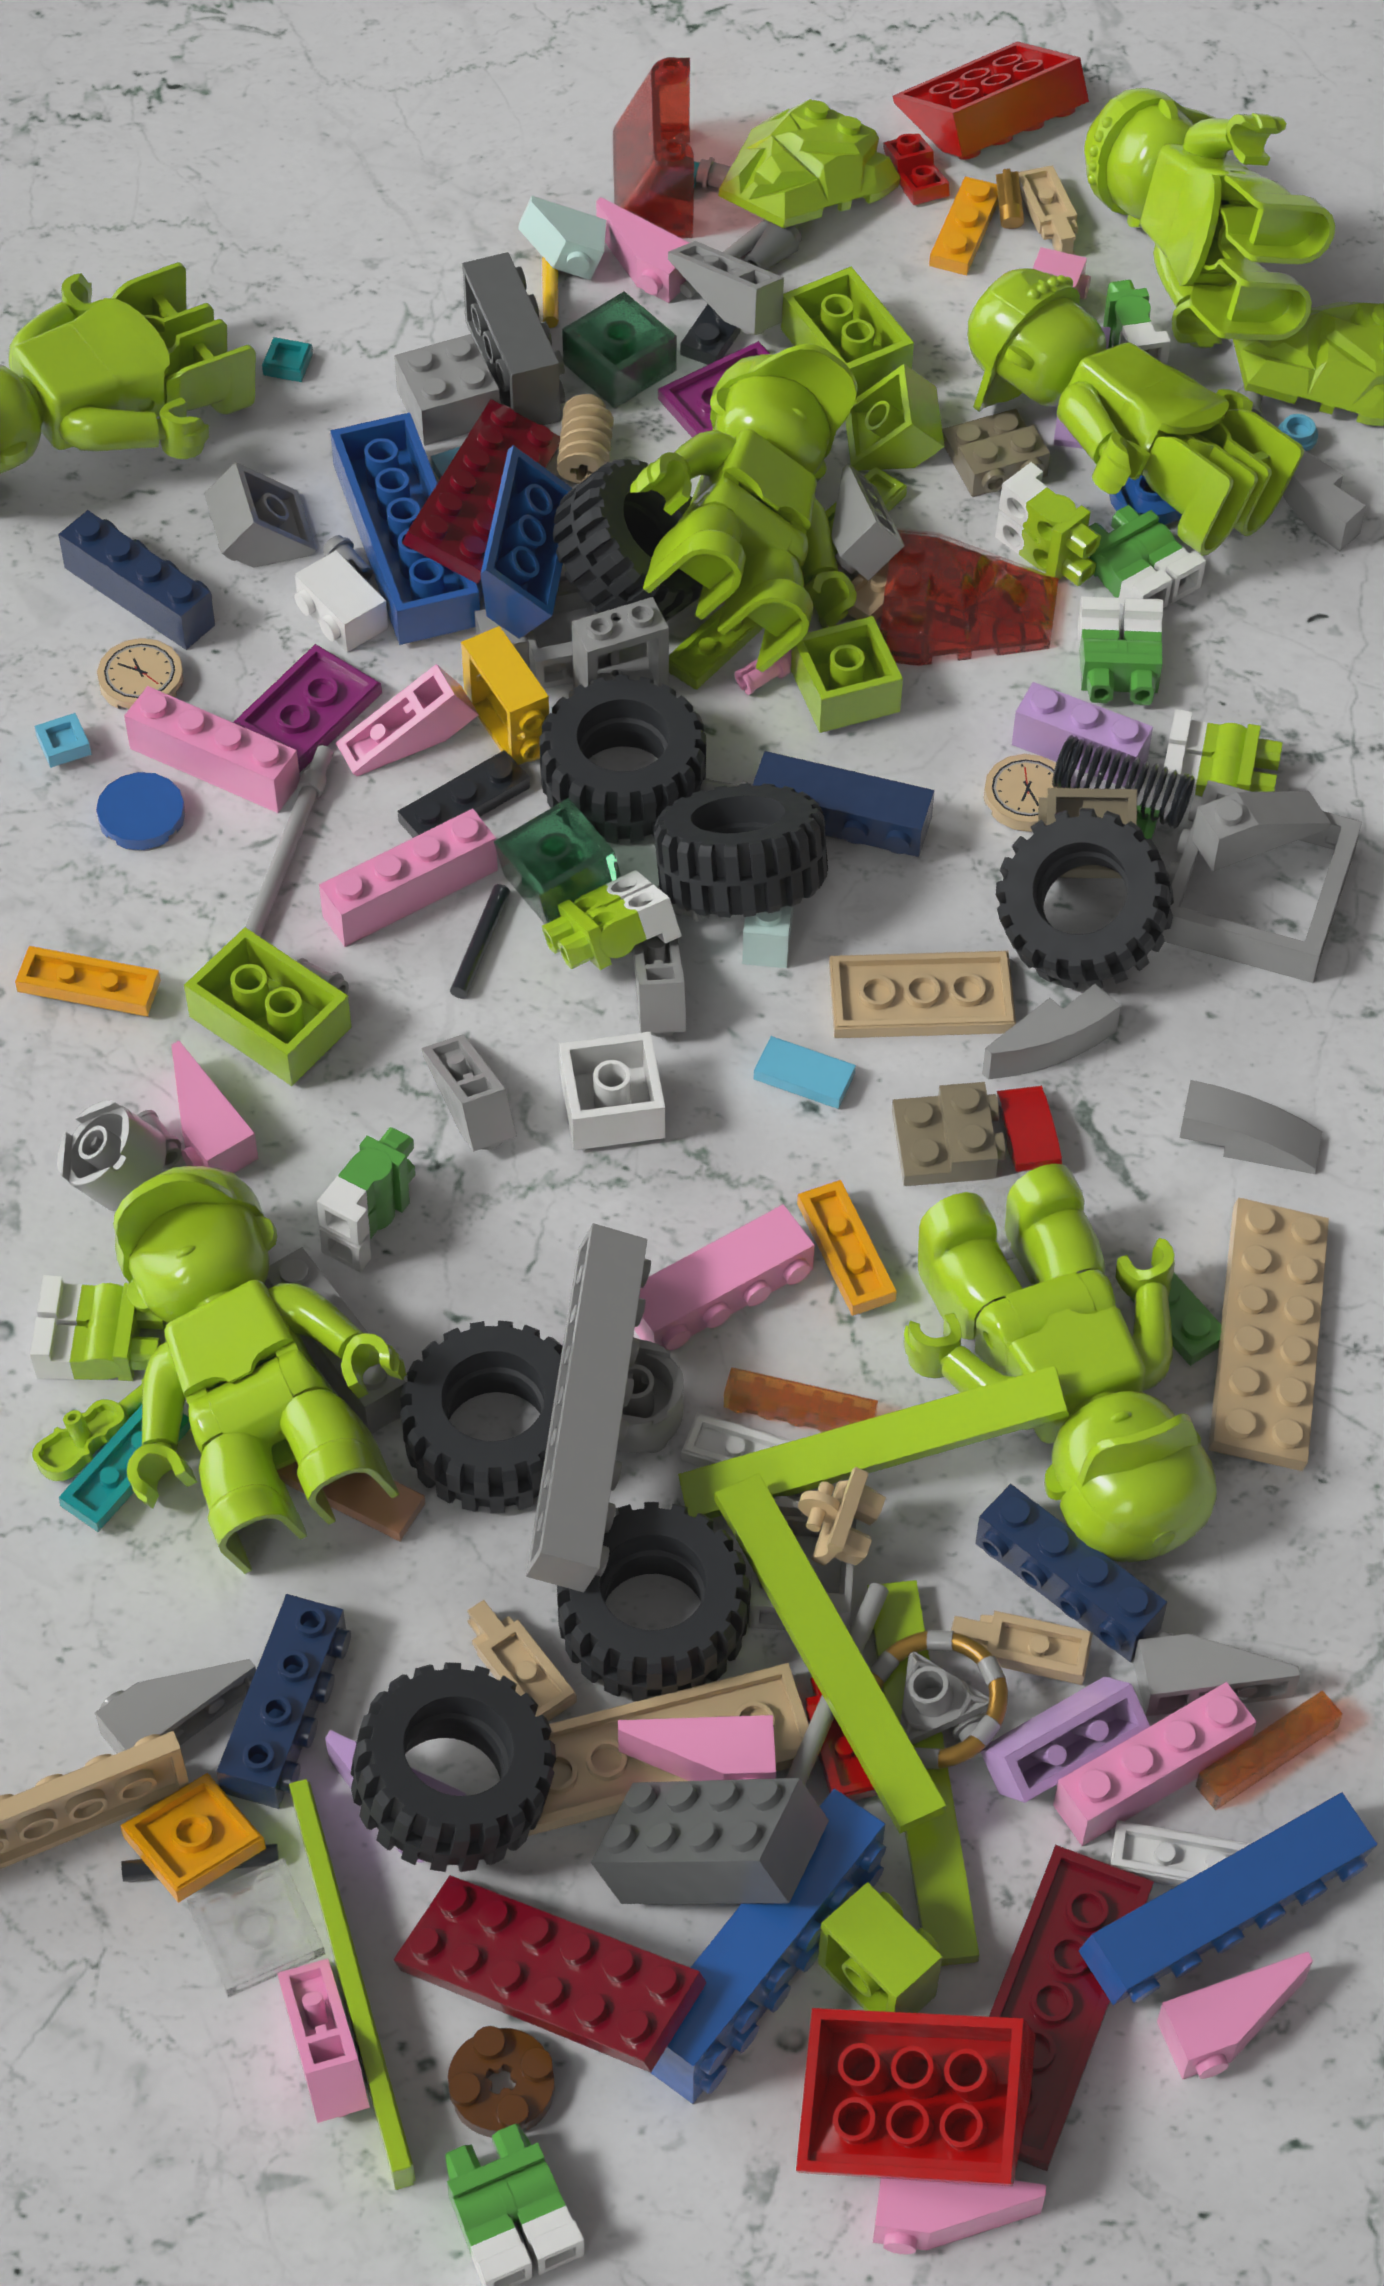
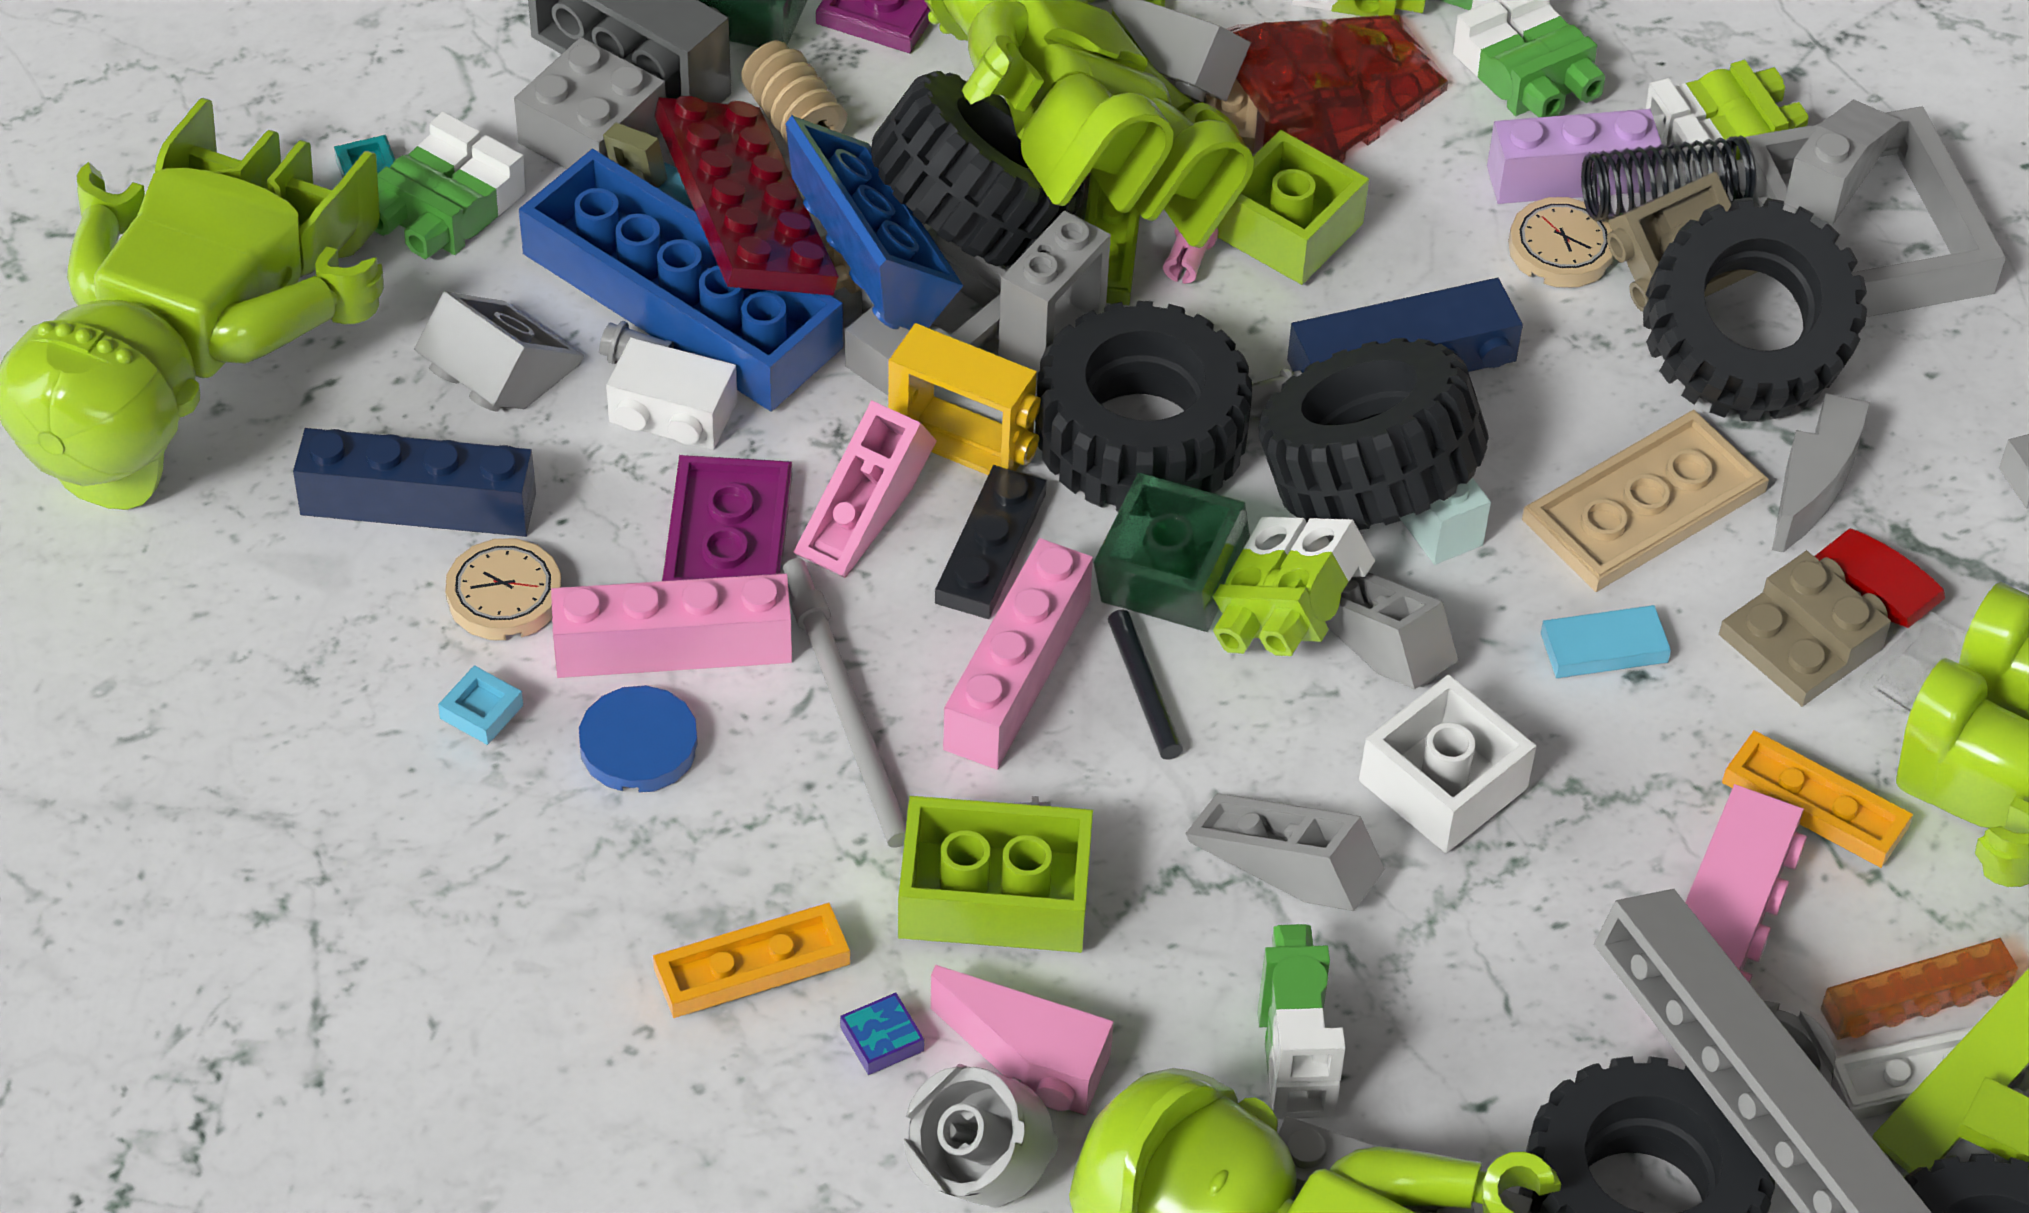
camera: 35 degrees left, 5 degrees down
(129, 1068) = (882, 1033): none -> tile
(314, 397) = (448, 187): none -> bright green hips
(444, 431) = (636, 152): none -> olive plate

